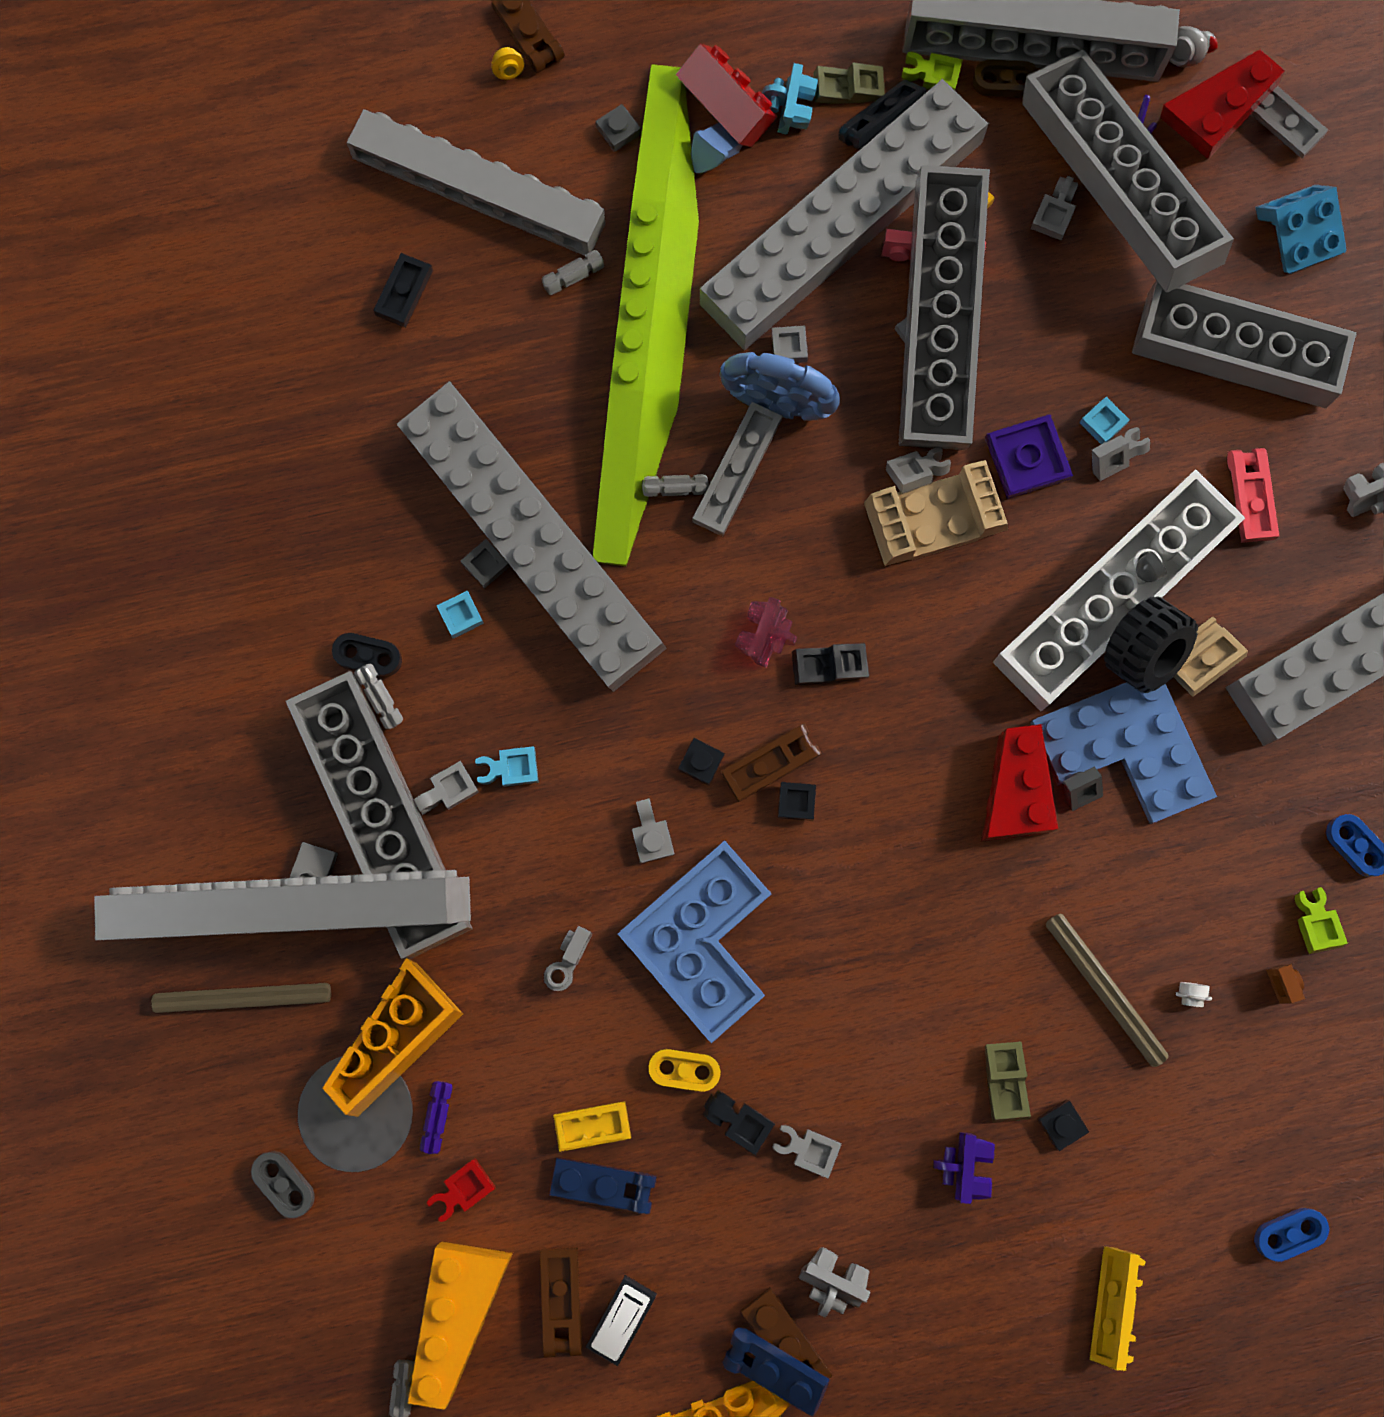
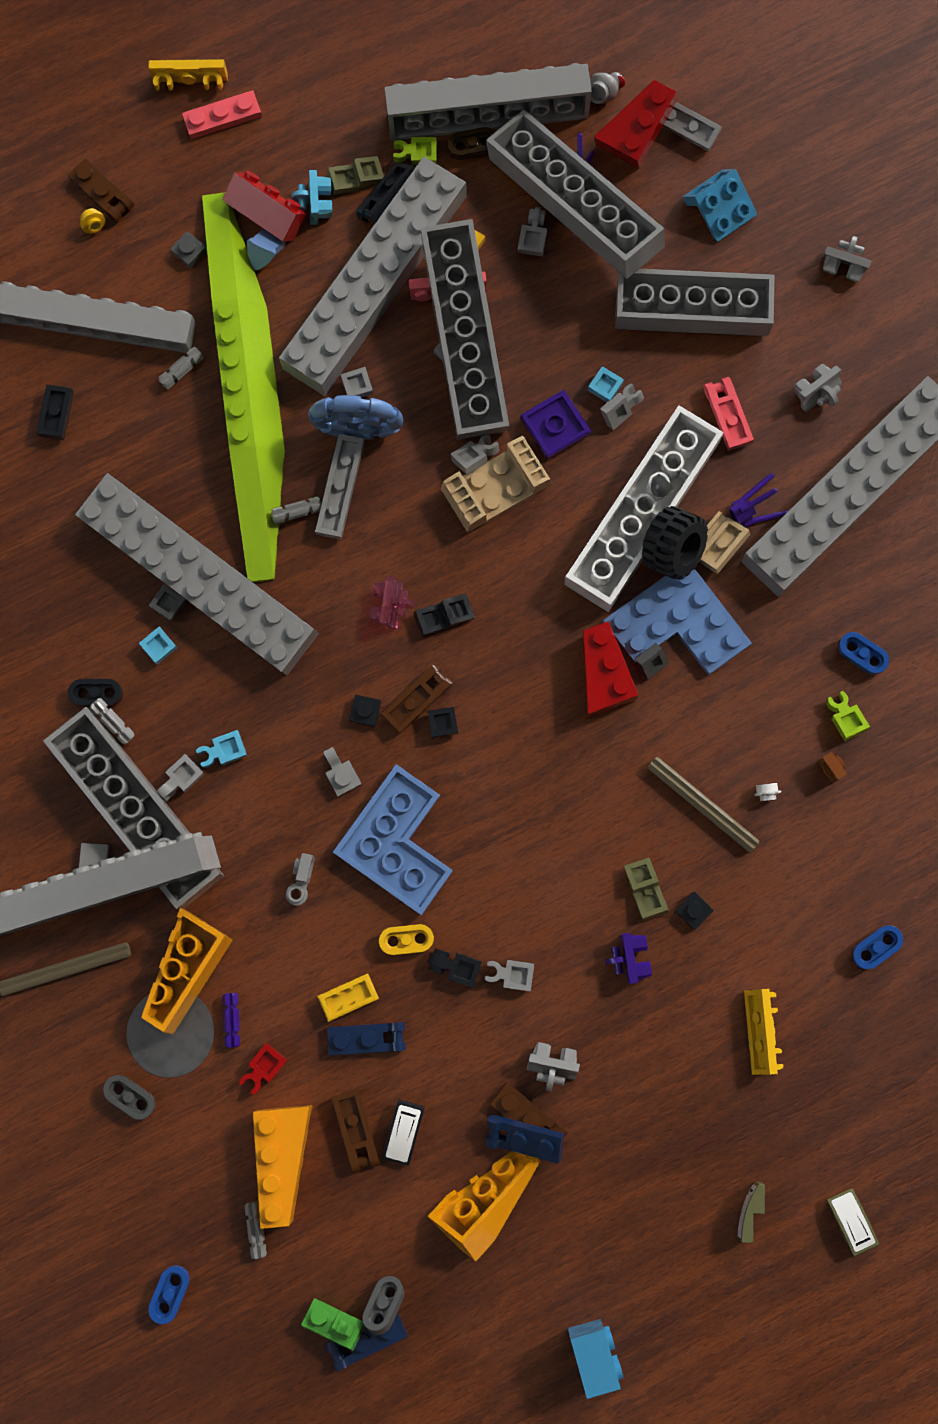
camera: 10 degrees left, 0 degrees up
(1245, 625) = (743, 511): none -> dark purple plant

